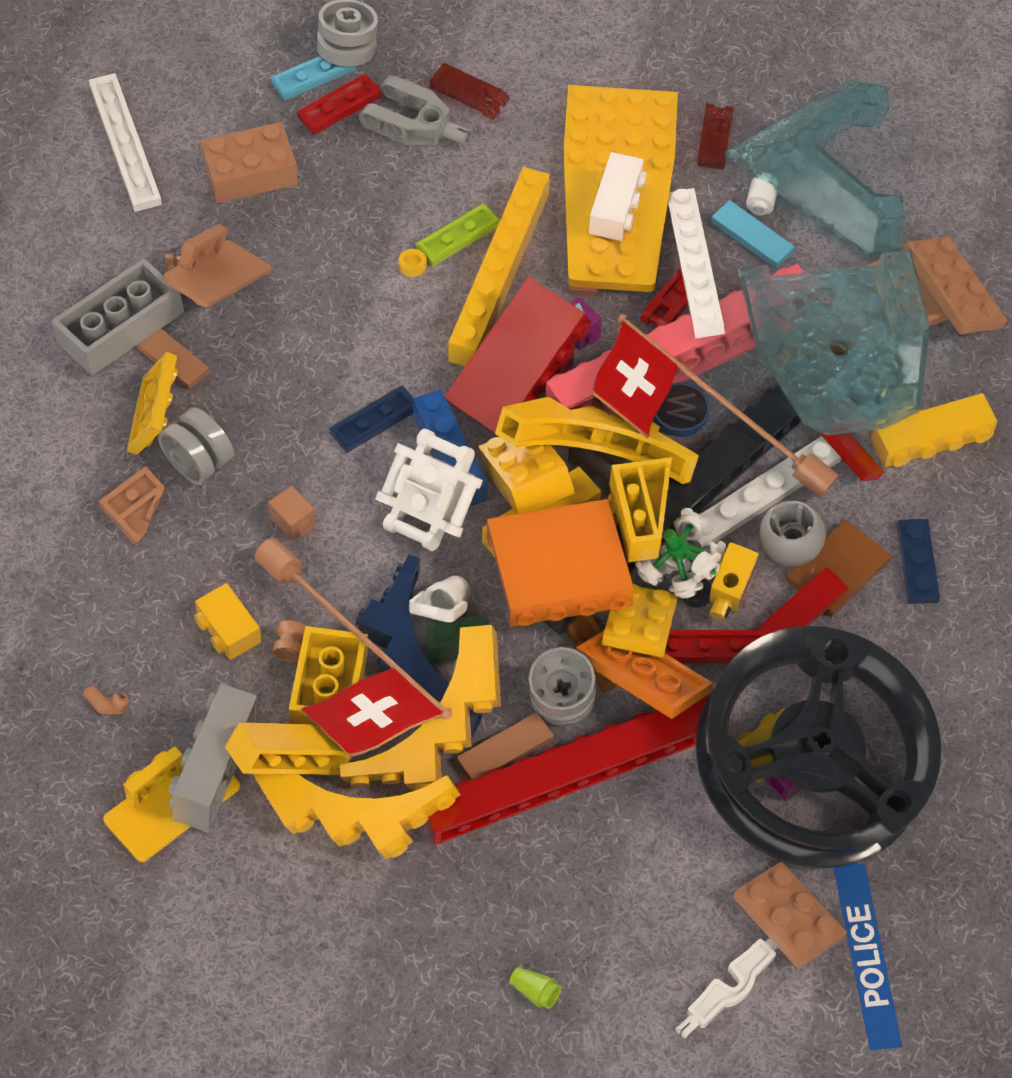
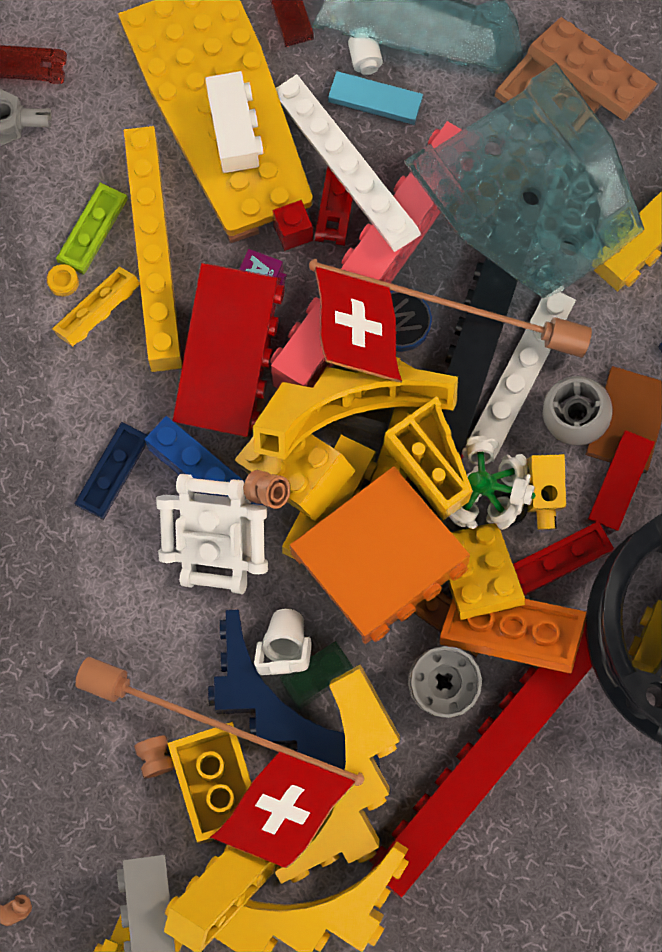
camera: 25 degrees left, 15 degrees up
(227, 621) = (83, 766): yellow brick -> none
(292, 513) = (87, 616): nougat brick -> none
(429, 291) = (96, 306): none -> yellow plate
(490, 466) = (266, 489): none -> nougat wheel
(506, 747) = (417, 763): nougat tile -> none
(626, 297) = (292, 225): none -> red brick
(854, 456) = (593, 297): red tile -> none

